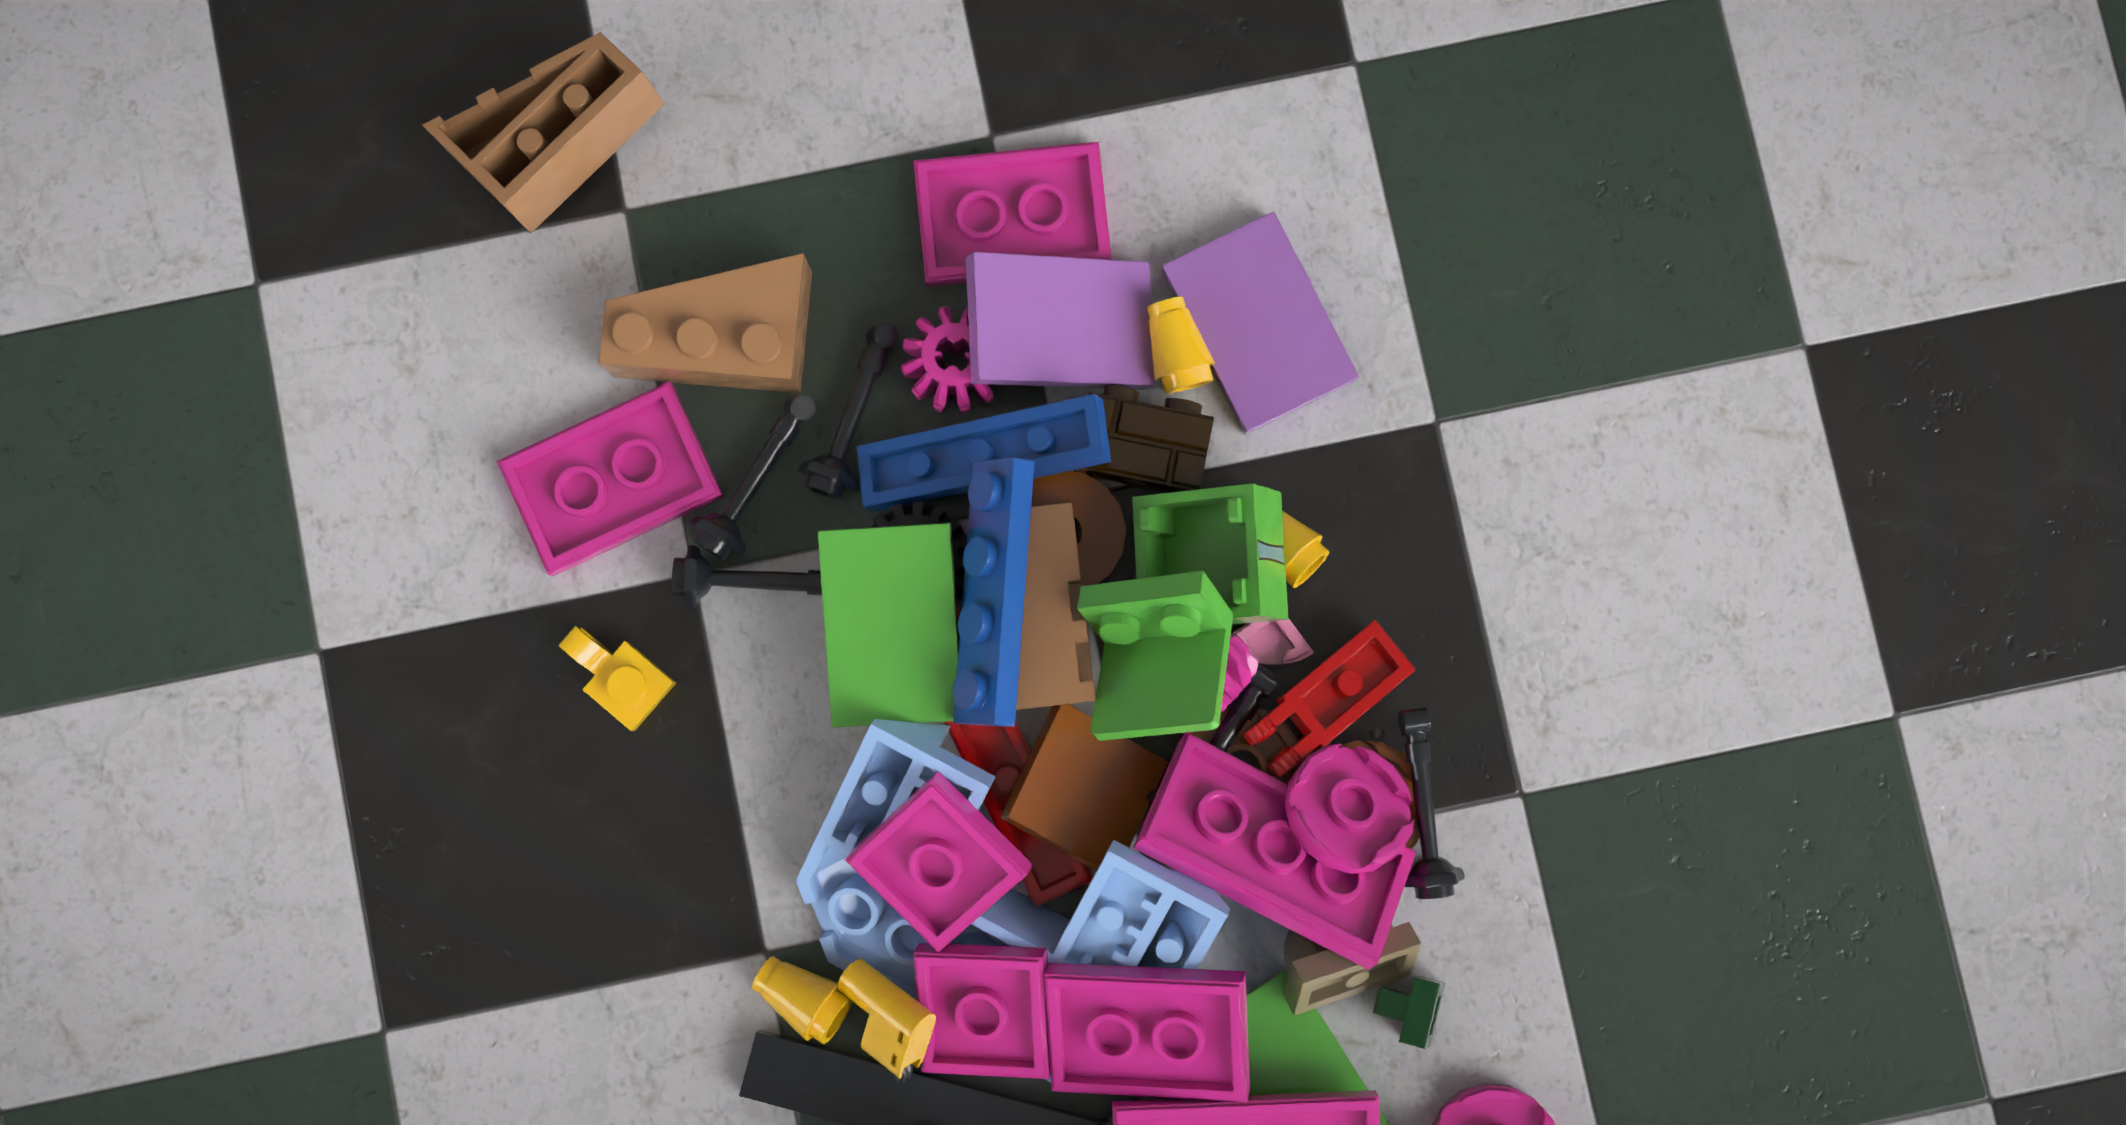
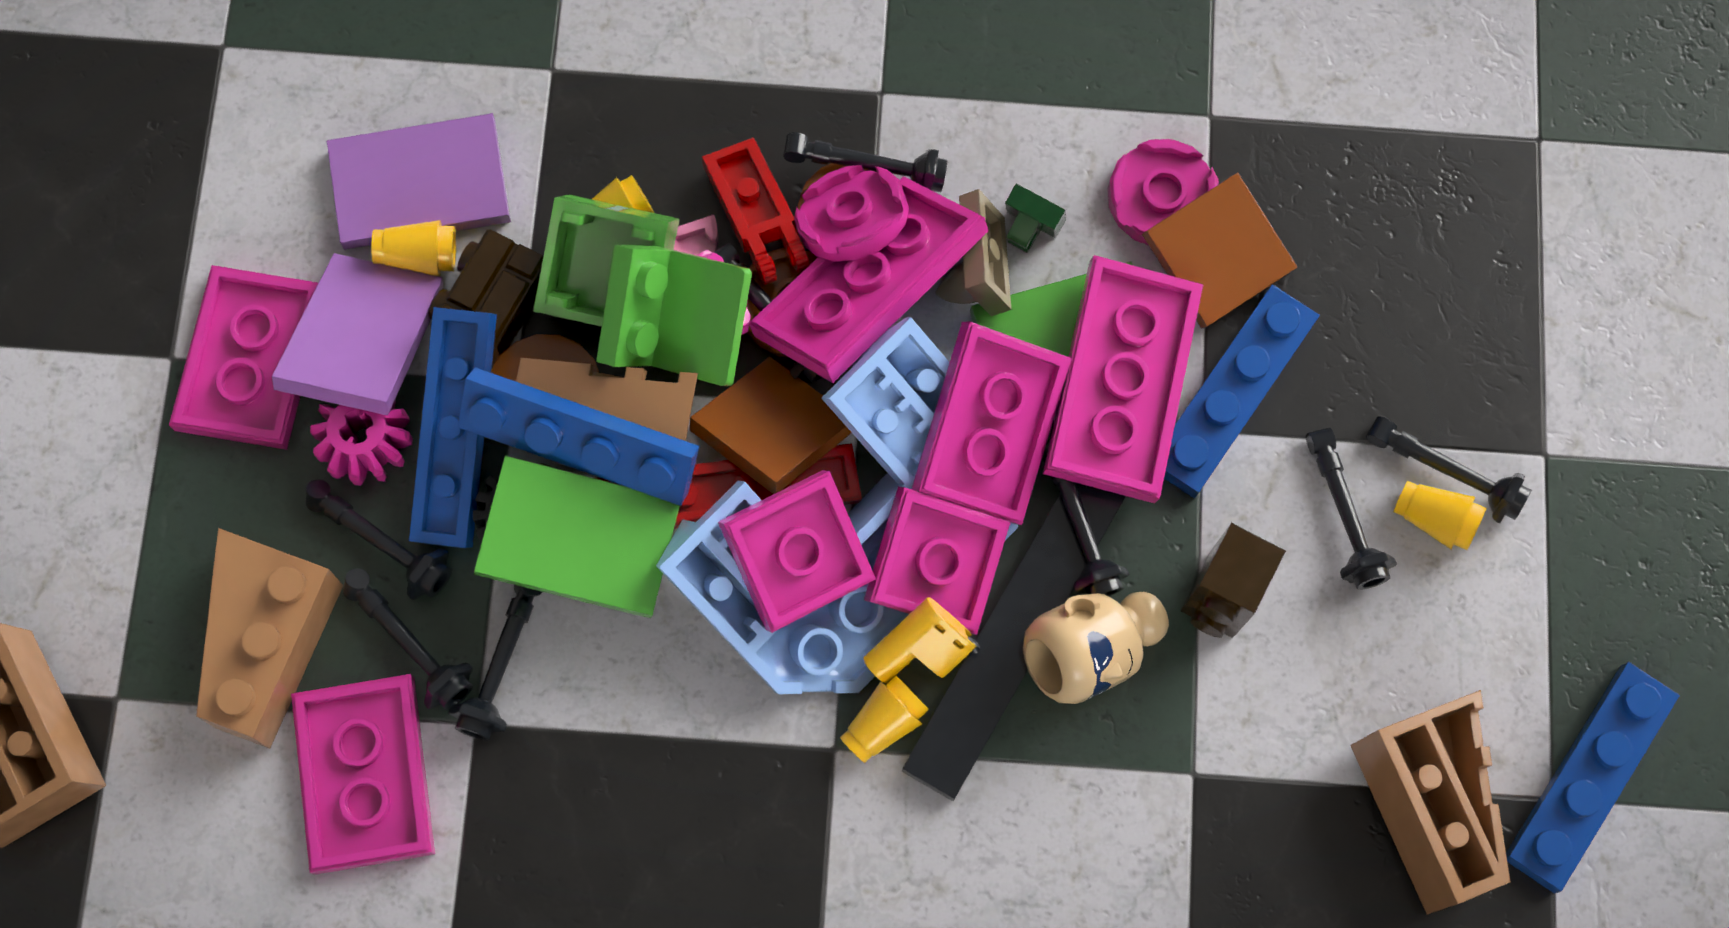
camera: 80 degrees left, 10 degrees down
(623, 682) = (553, 807): yellow plate -> none

